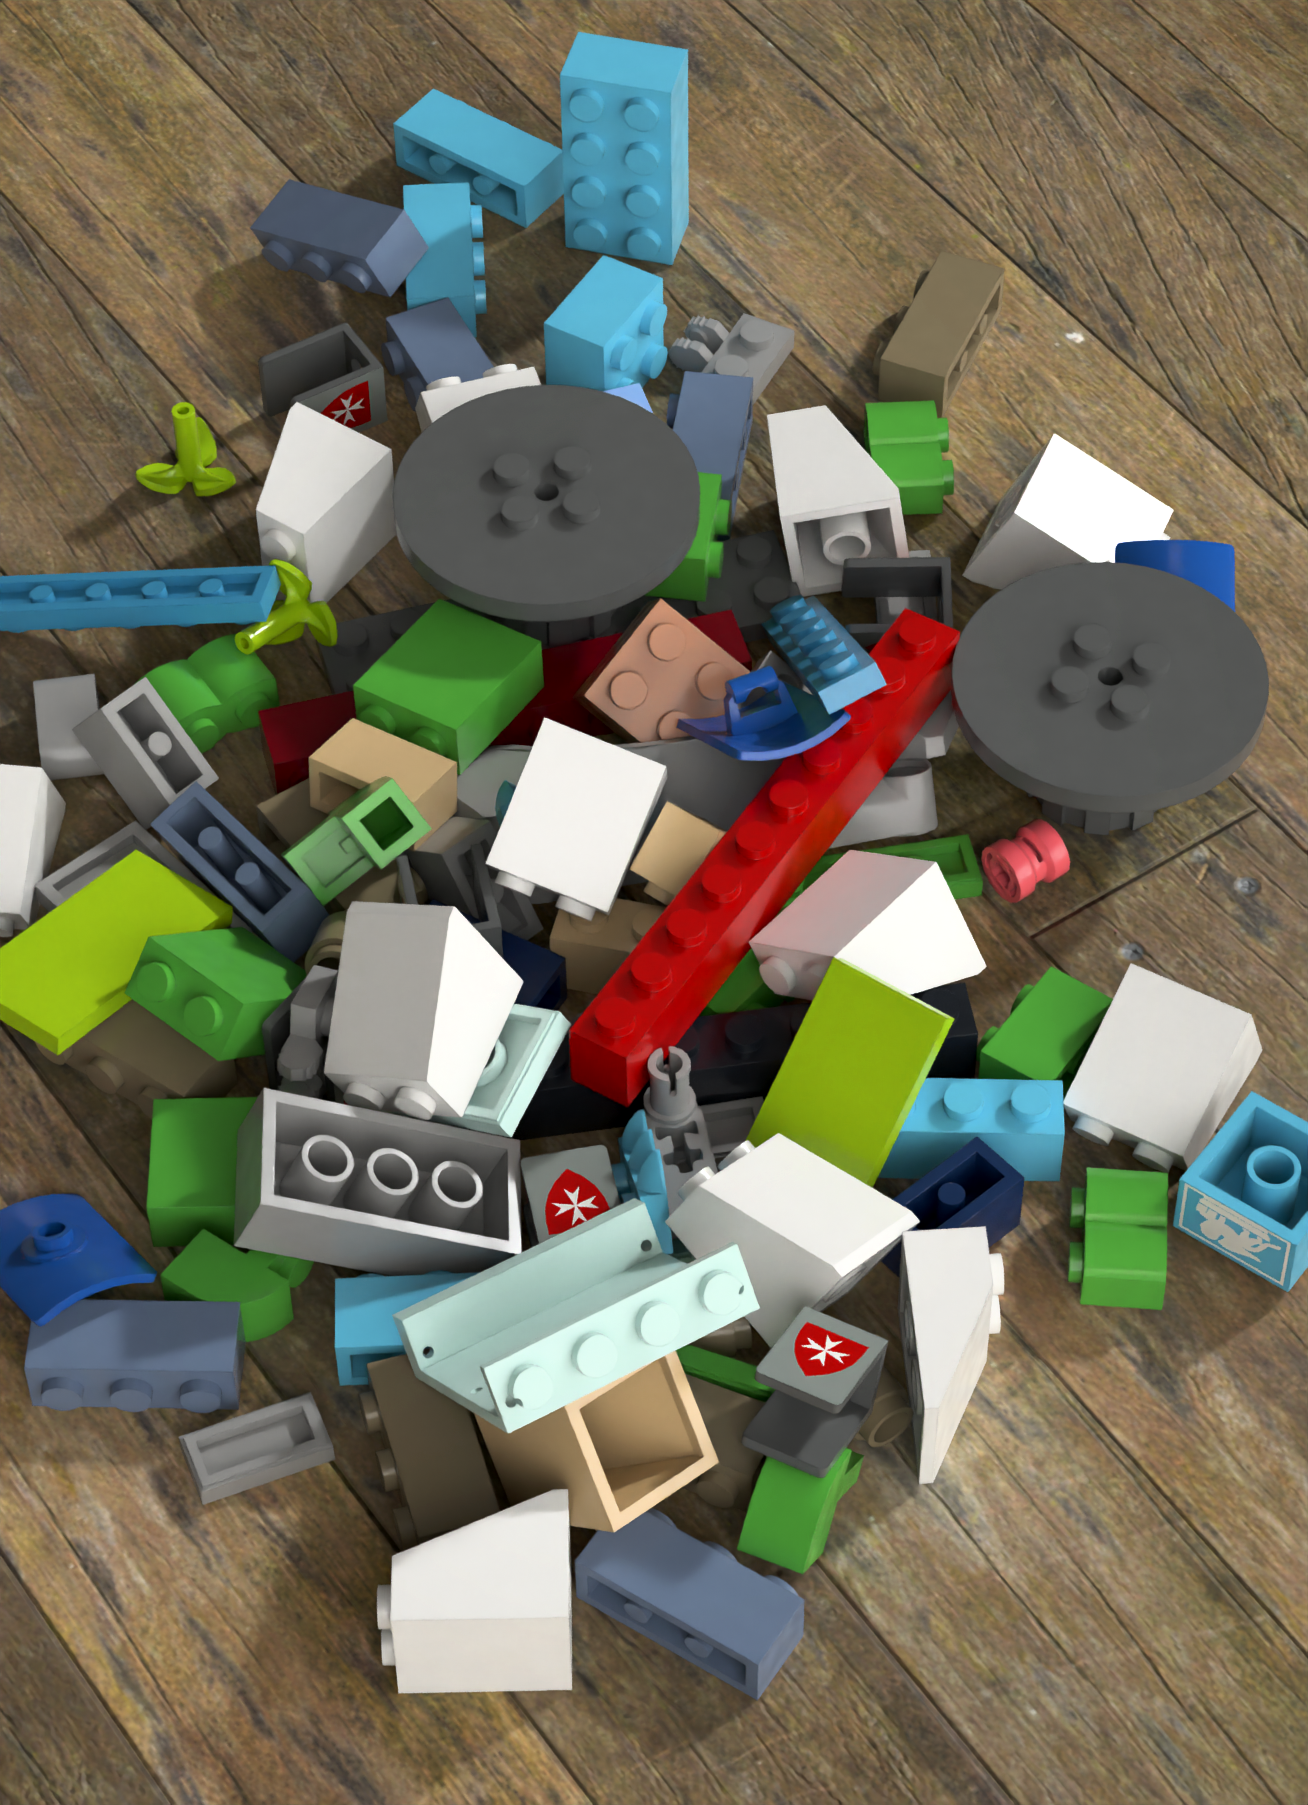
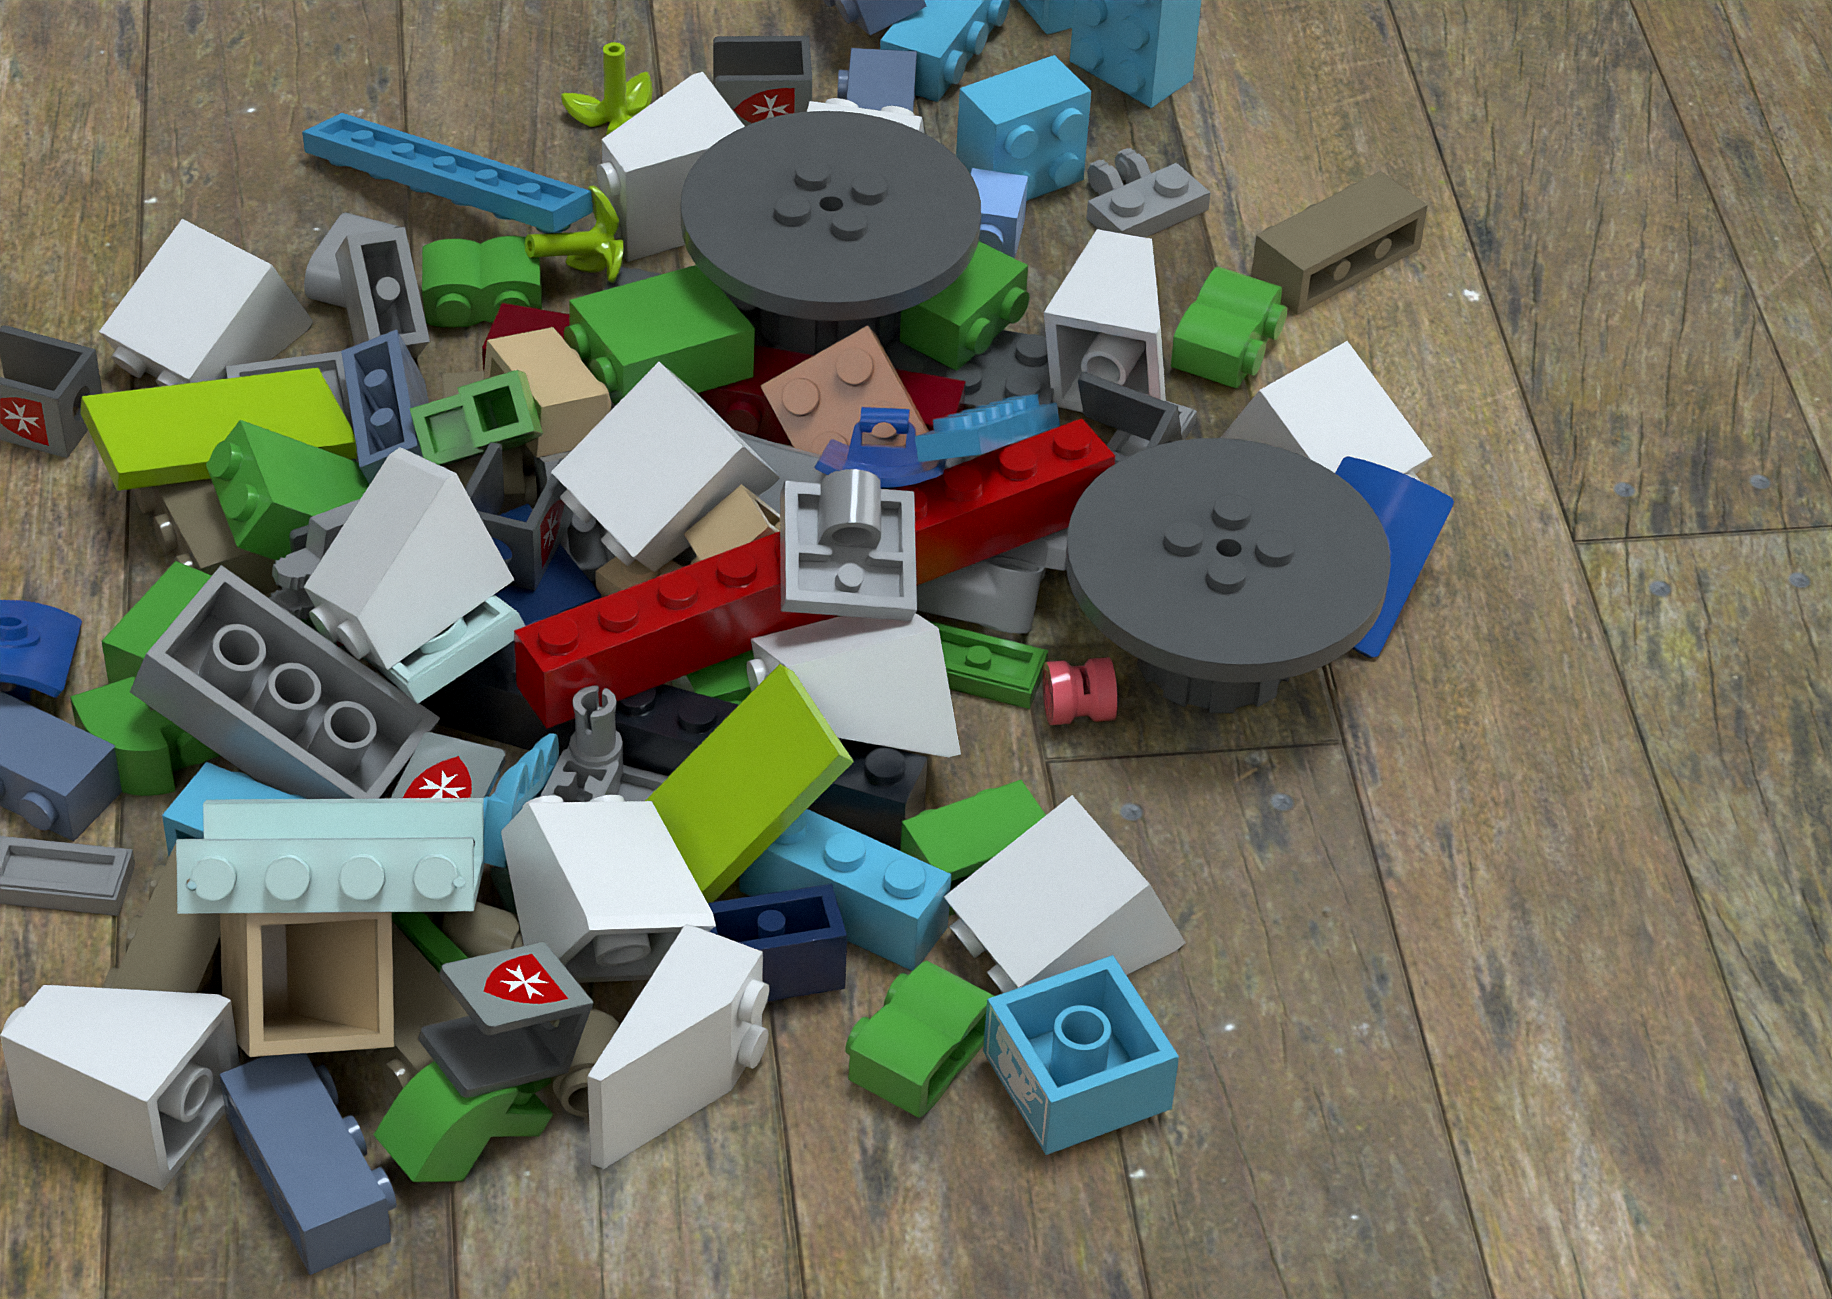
camera: 25 degrees right, 5 degrees down
(715, 425) = (1055, 242): sand blue brick -> none
(814, 822) = (848, 548): none -> light grey plate

